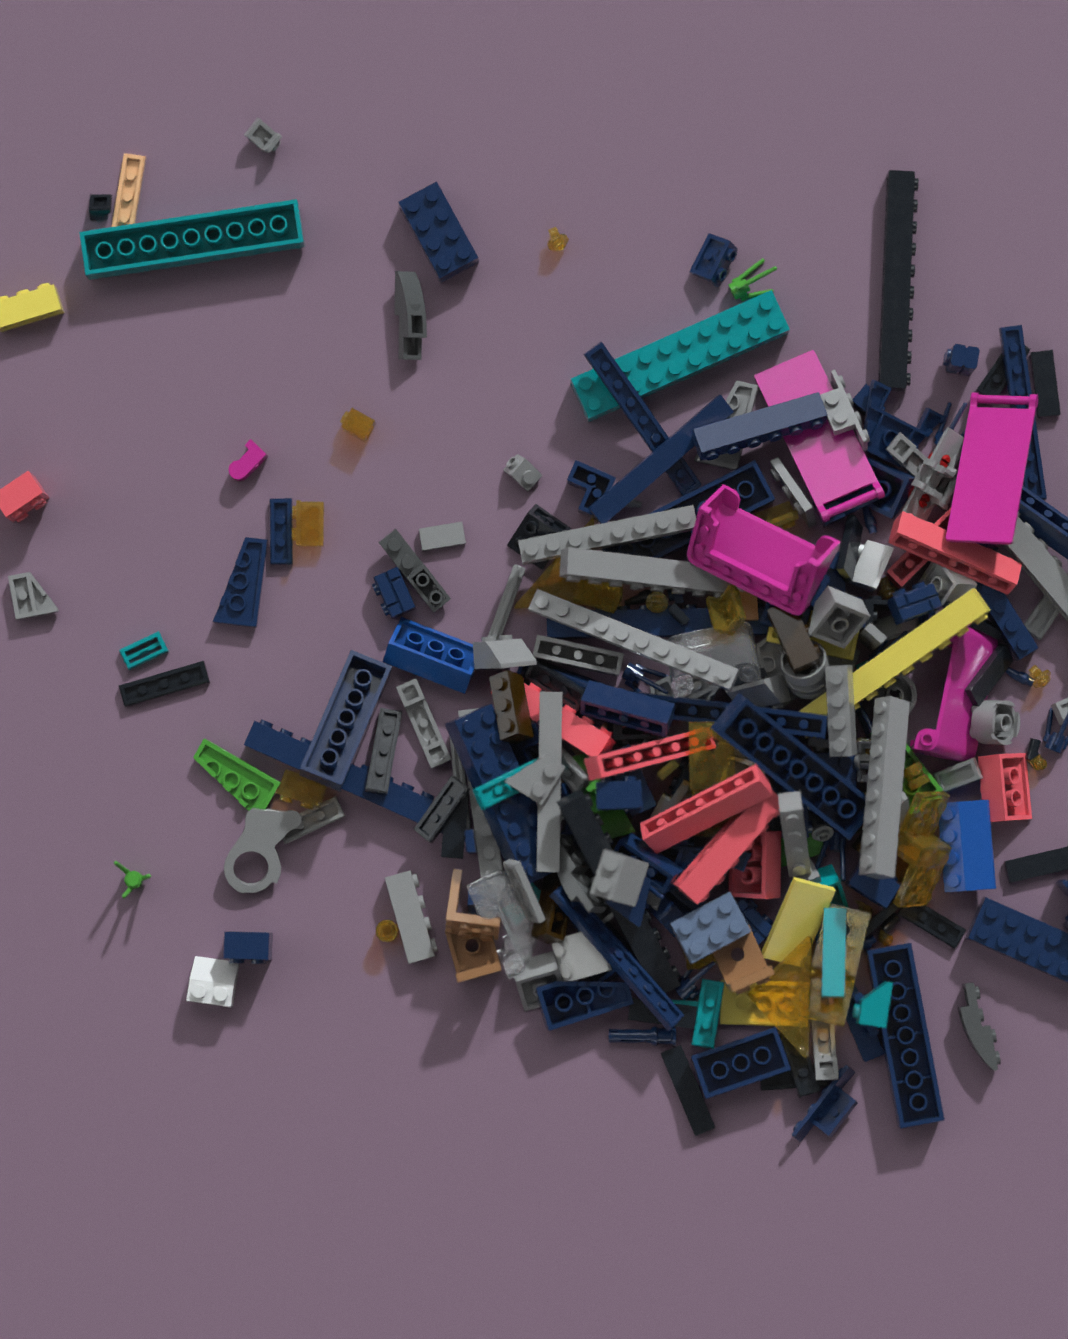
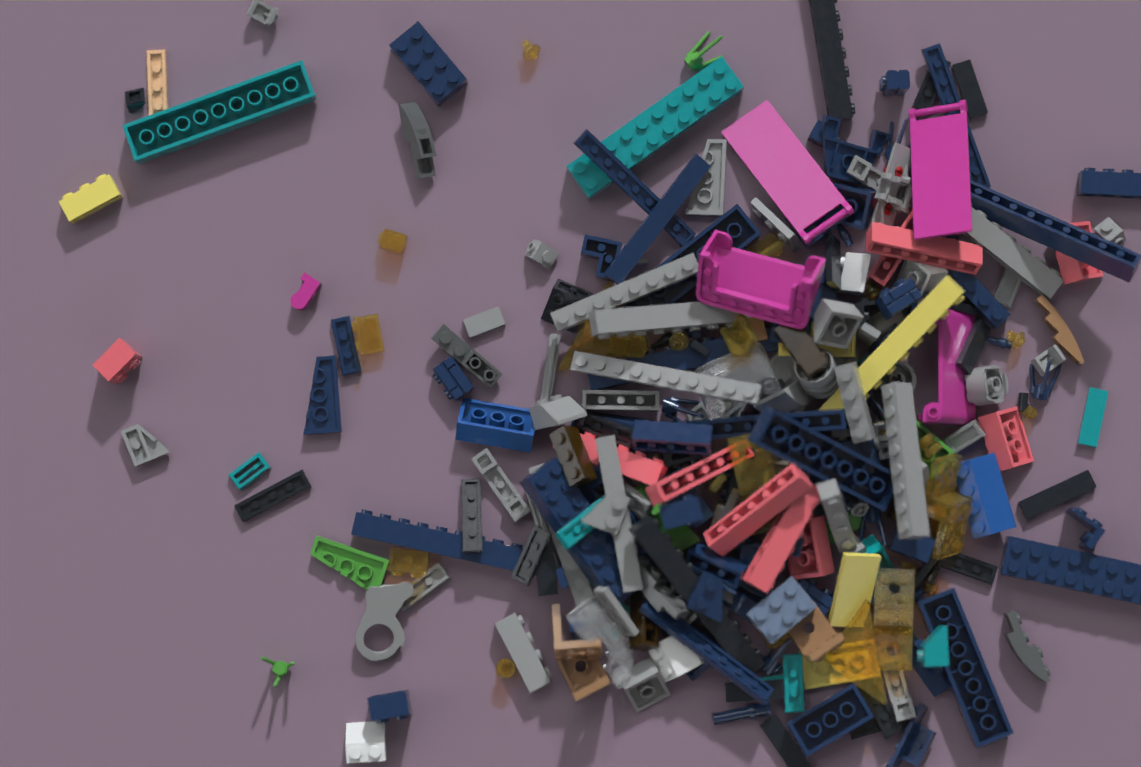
camera: 10 degrees left, 0 degrees up
(345, 720) = (434, 496): dark blue brick -> none
(575, 1001) = (679, 695): dark blue wedge -> none
(619, 878) = (696, 584): light grey slope -> none
(714, 259) = (667, 40): dark blue bracket -> none
(759, 426) = (735, 174): dark blue brick -> none
(834, 953) = (891, 610): teal tile -> none
(840, 411) = (800, 147): light grey bracket -> none

